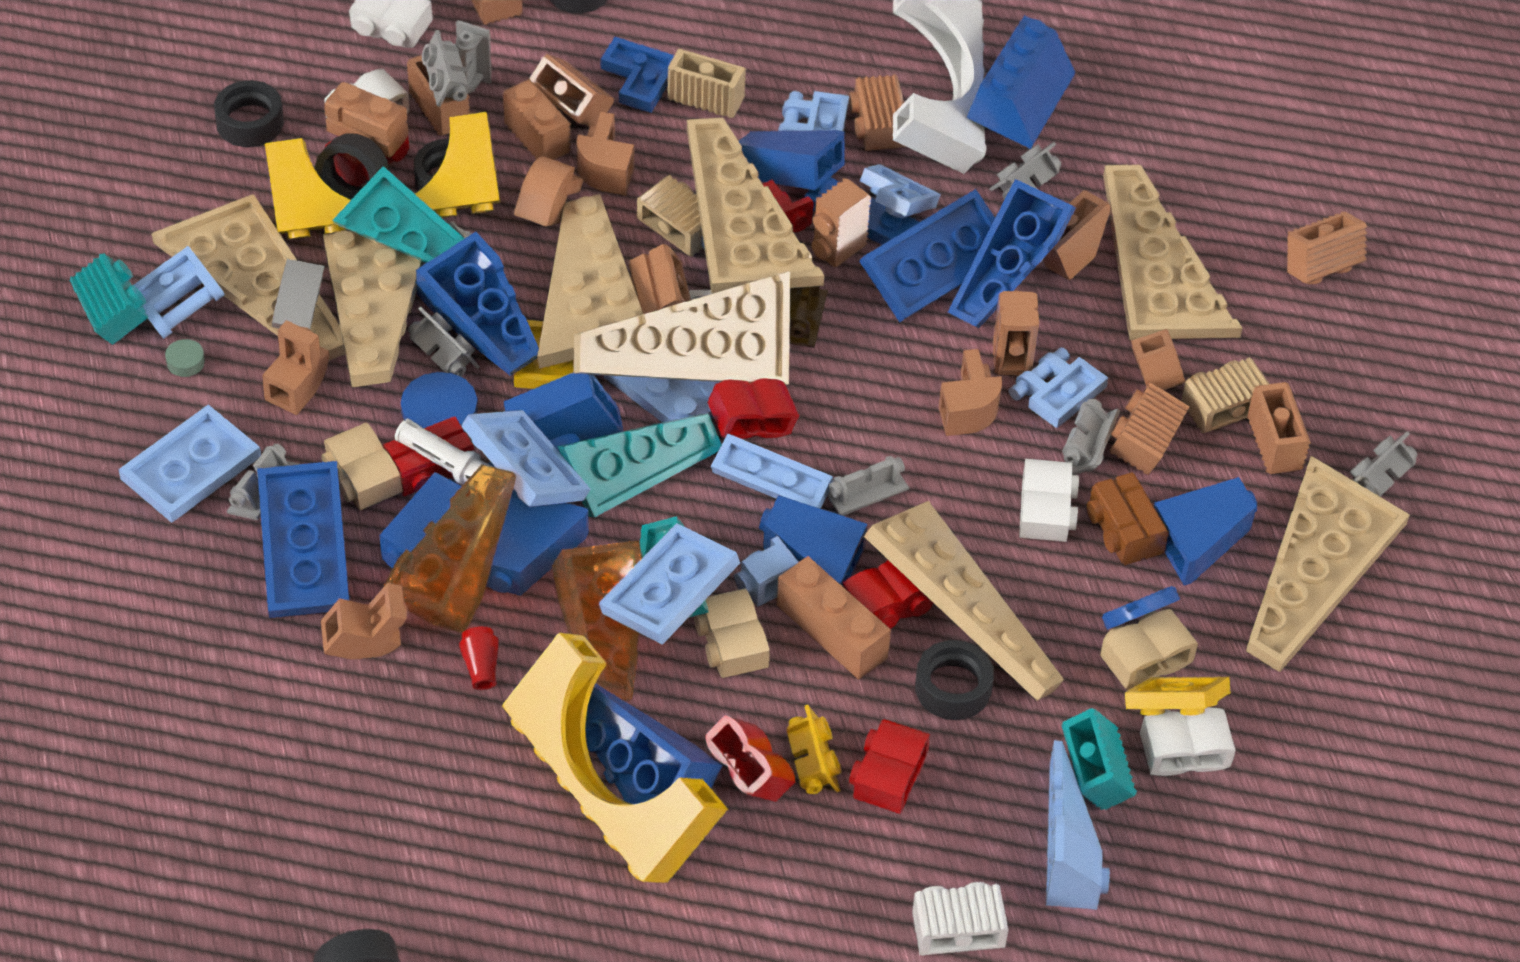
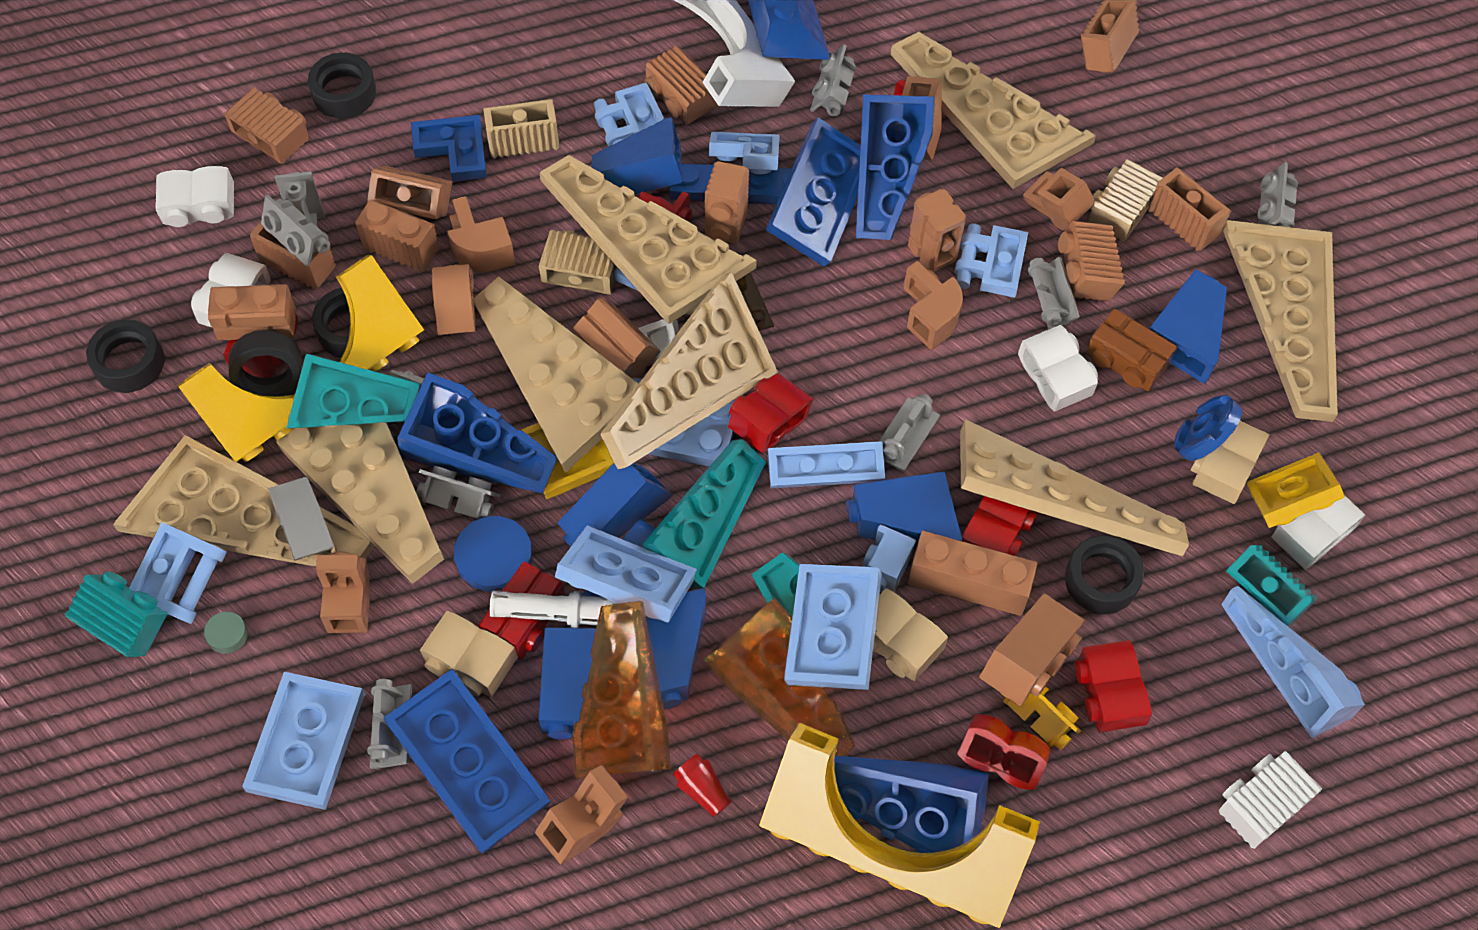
camera: 30 degrees left, 10 degrees up
(832, 691) = (1033, 650): none -> nougat brick

